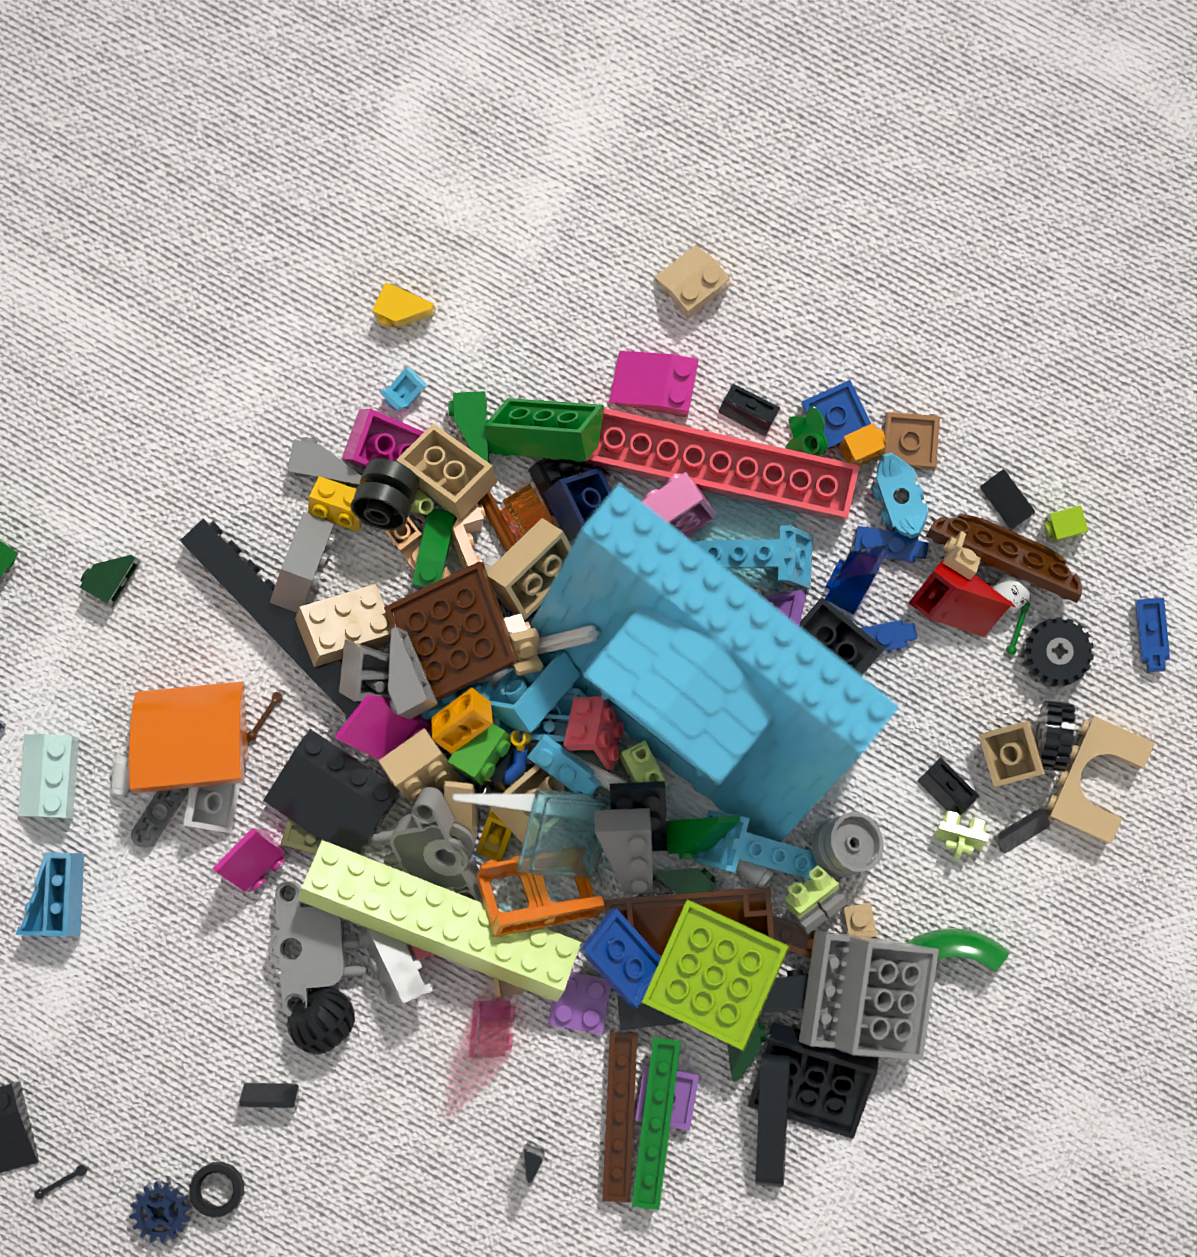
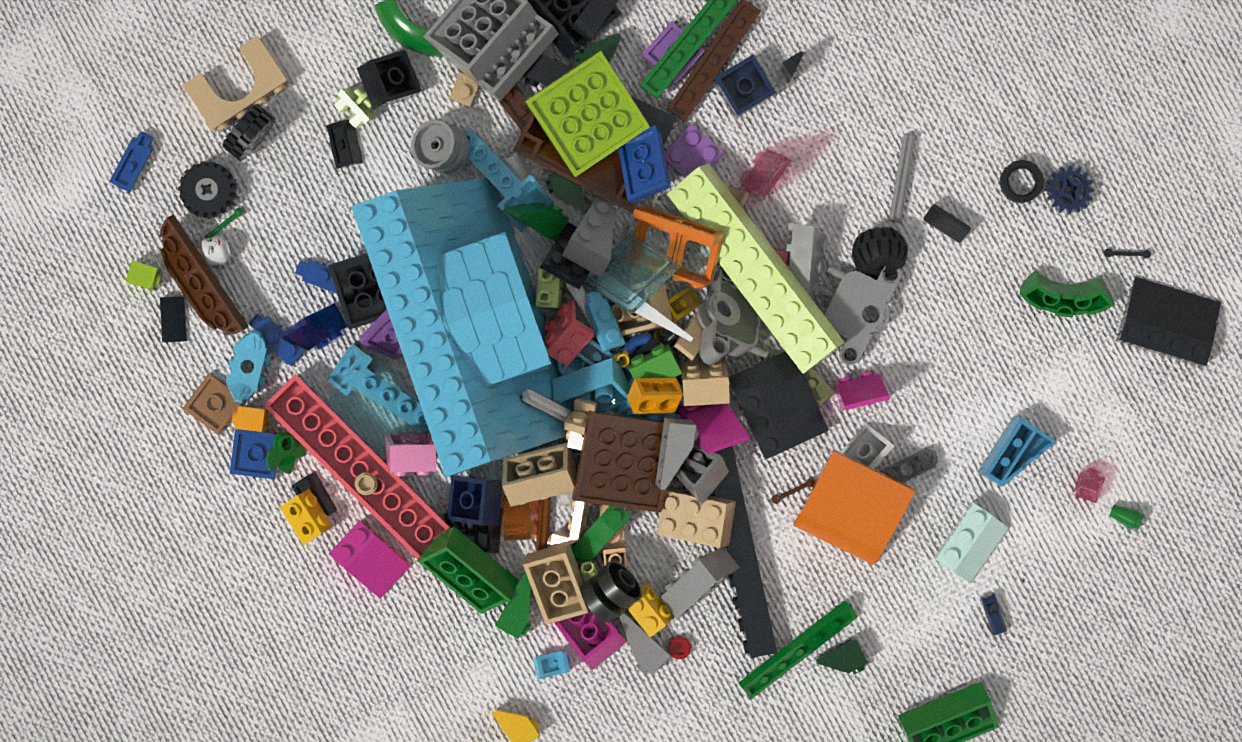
camera: 150 degrees left, 5 degrees up
(95, 1093) = (1066, 299): none -> green brick
(120, 774) = (916, 511): white cone -> none
(161, 557) = (798, 649): none -> green plate
(284, 487) = (679, 647): none -> red tile
(345, 1114) = (902, 178): none -> light grey axle
(569, 1108) = (744, 86): none -> dark blue brick
(693, 280) = (295, 616): tan slope -> none
(704, 450) = (366, 483): none -> tan plate
(743, 384) = (306, 516): none -> yellow brick
(814, 899) = (487, 123): yellowish green hips -> none
(945, 882) = (389, 79): none -> black brick
(959, 601) = (253, 269): red slope -> none
(960, 559) = (235, 295): tan bracket -> none
(1011, 754) = (286, 139): tan slope -> none
(1022, 830) = (311, 83): black slope -> none

